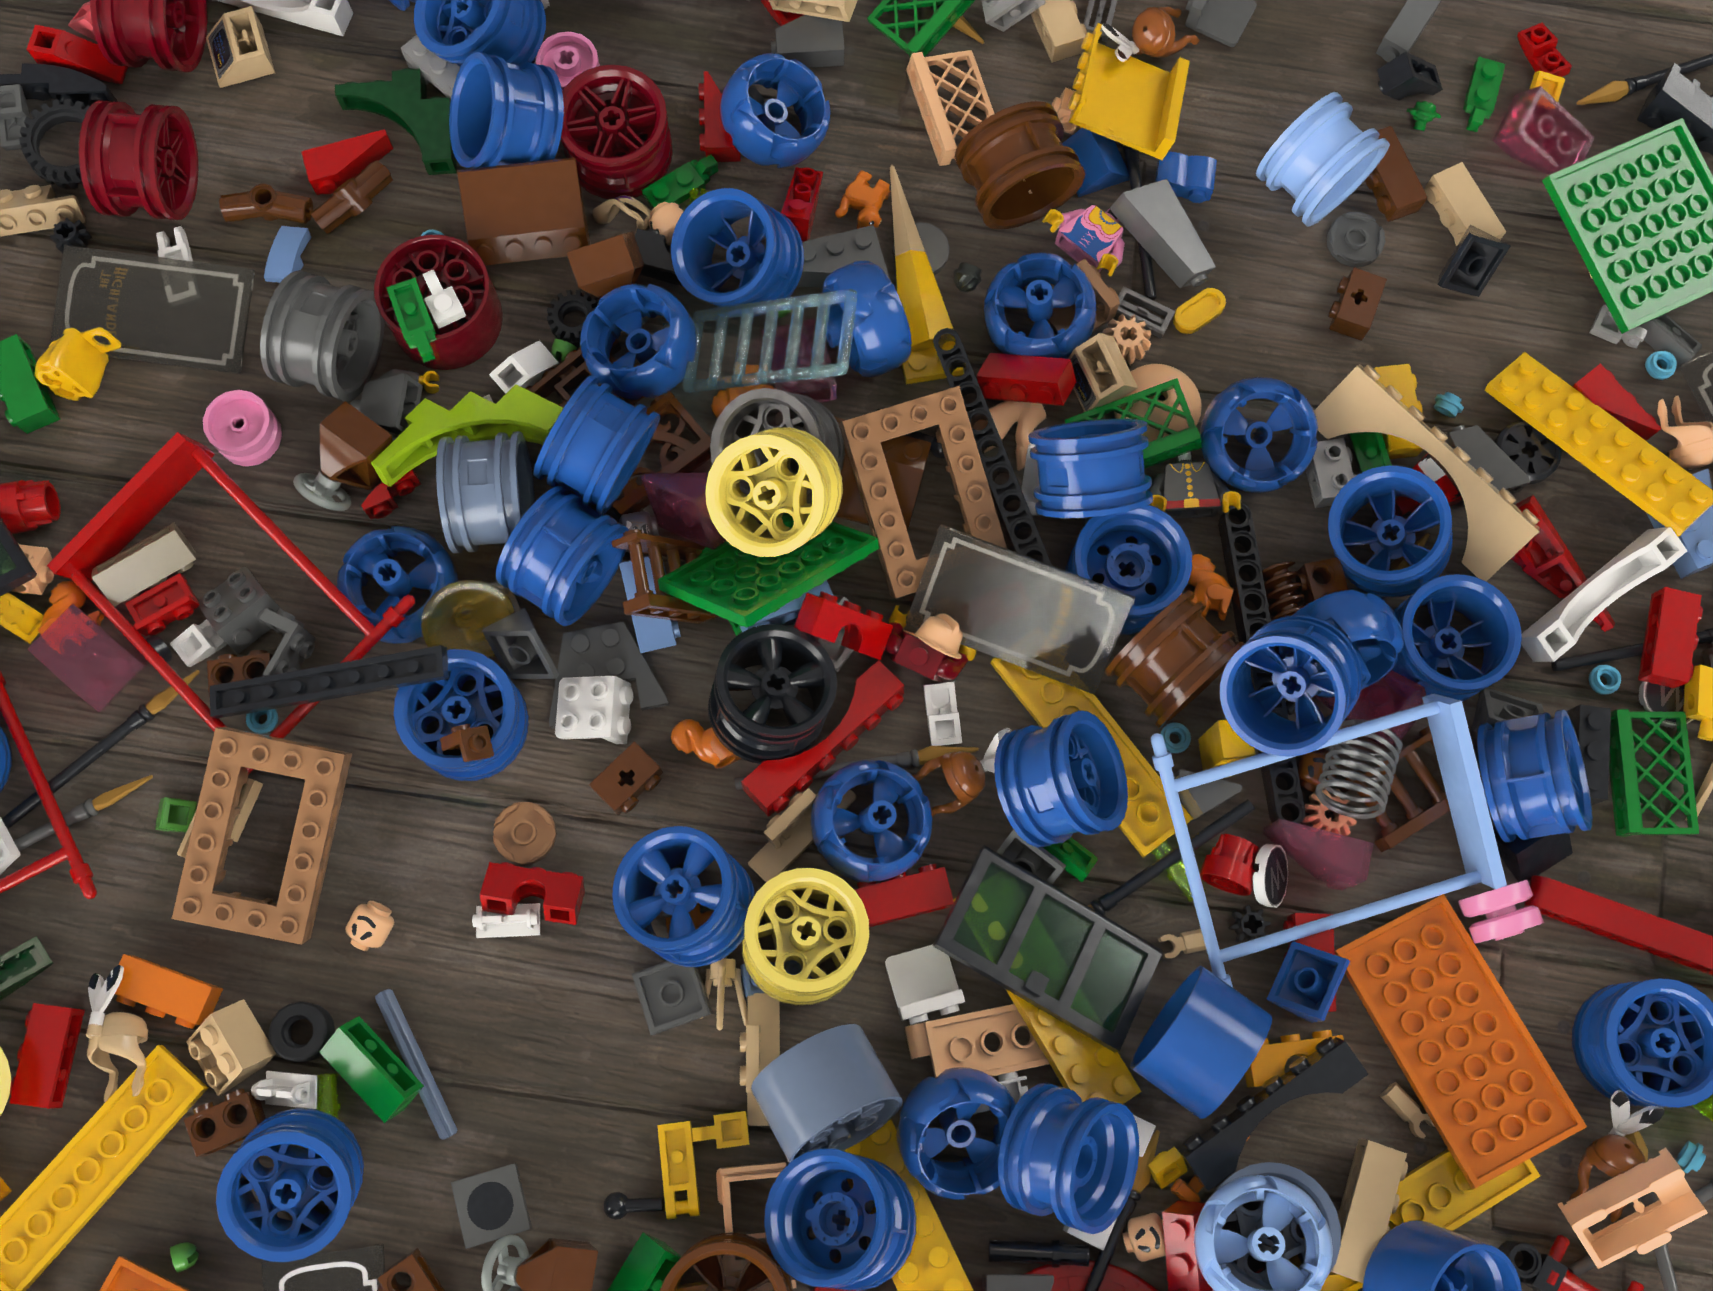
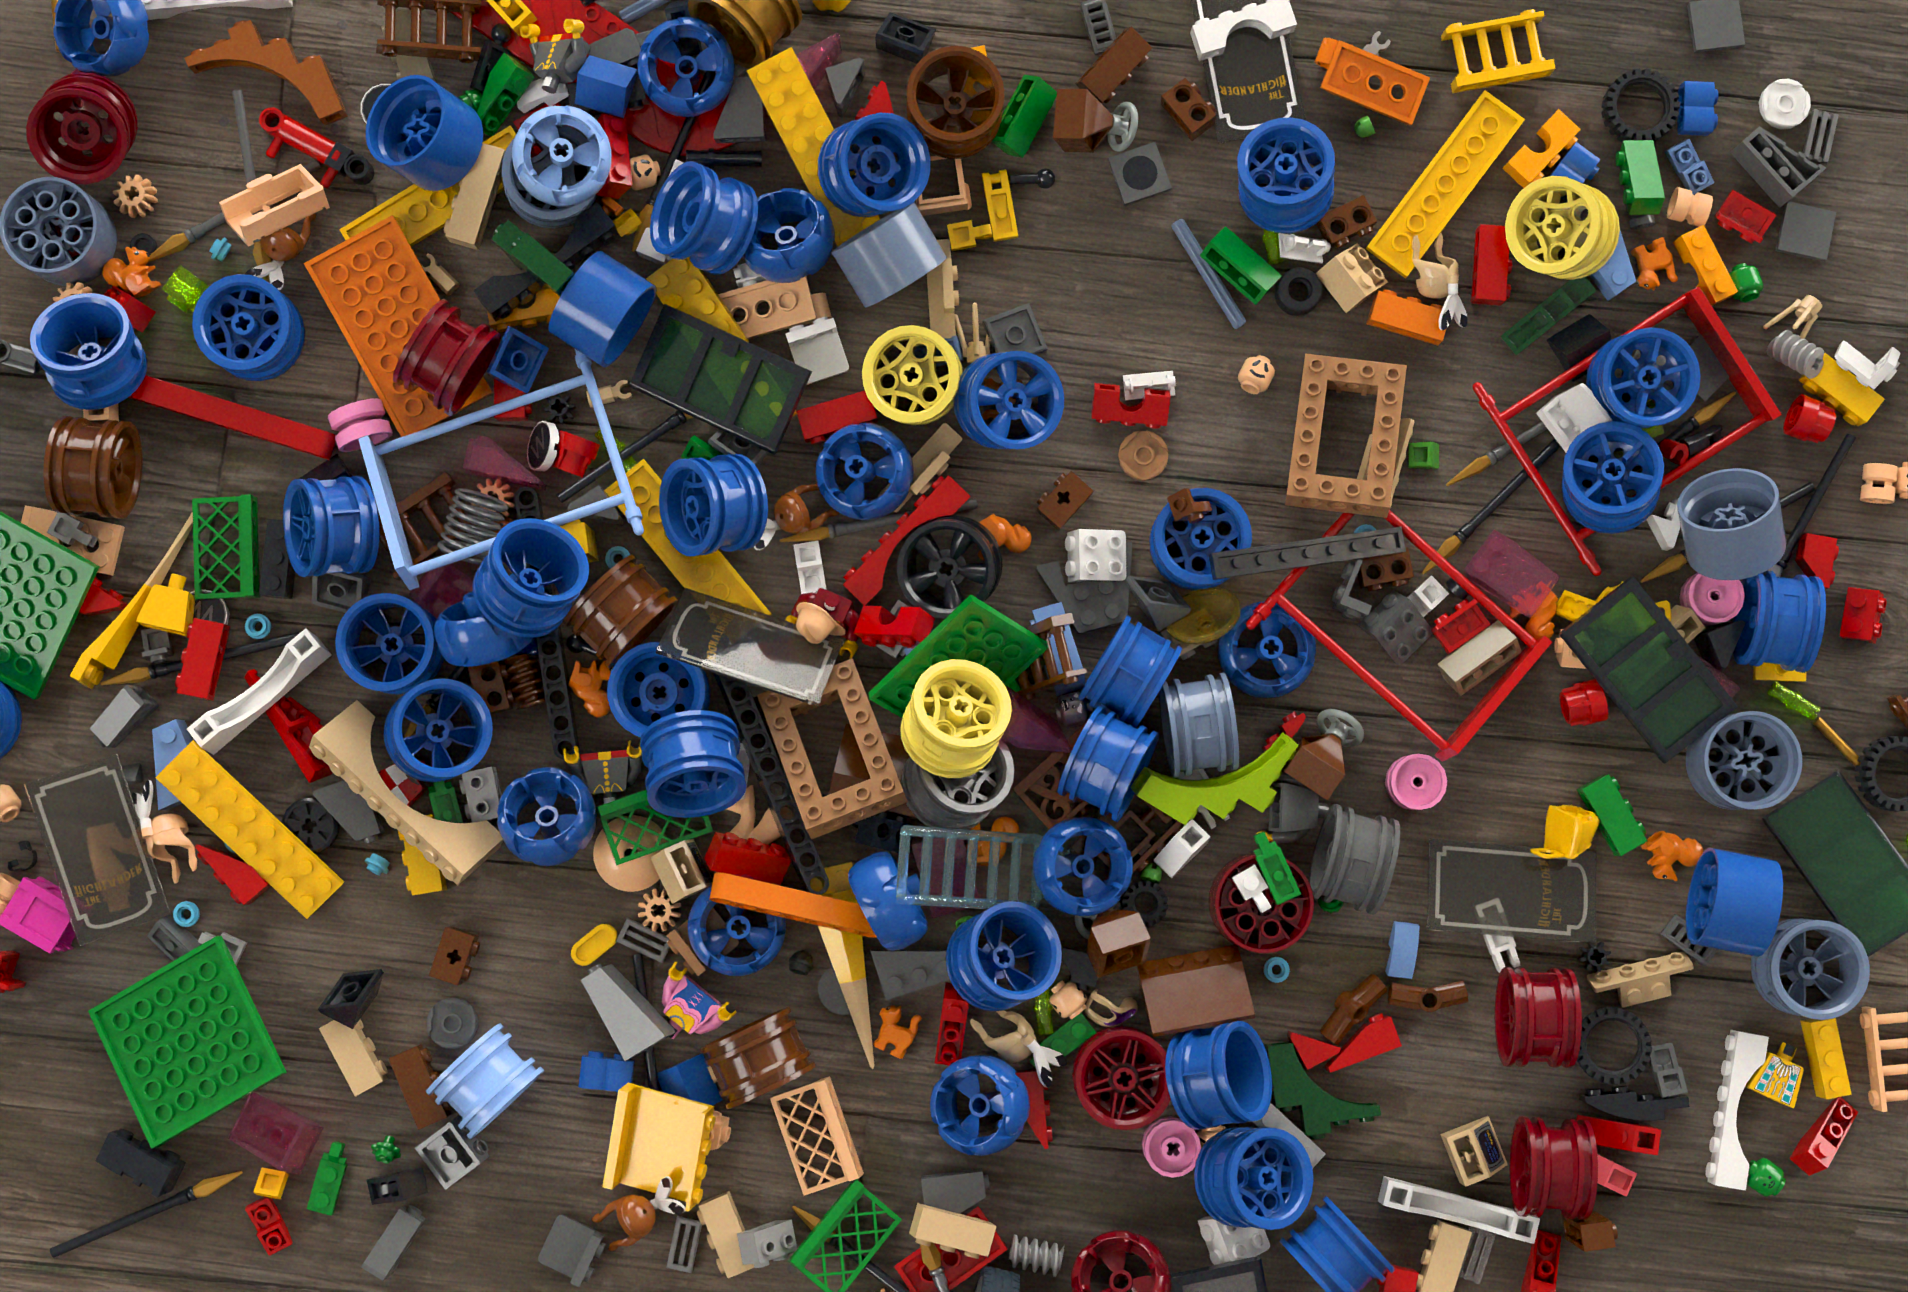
camera: 175 degrees right, 10 degrees up
(402, 159) = (1311, 1050): none -> red slope
(727, 173) = (1020, 1044): none -> tan hair
(863, 396) = (881, 832): none -> black brick
(987, 319) = (789, 904): none -> orange beam
(1296, 1108) = (532, 256): none -> dark green arch
(1367, 107) = (452, 1153): none -> dark grey plate
(1403, 981) = (446, 357): none -> dark red wheel

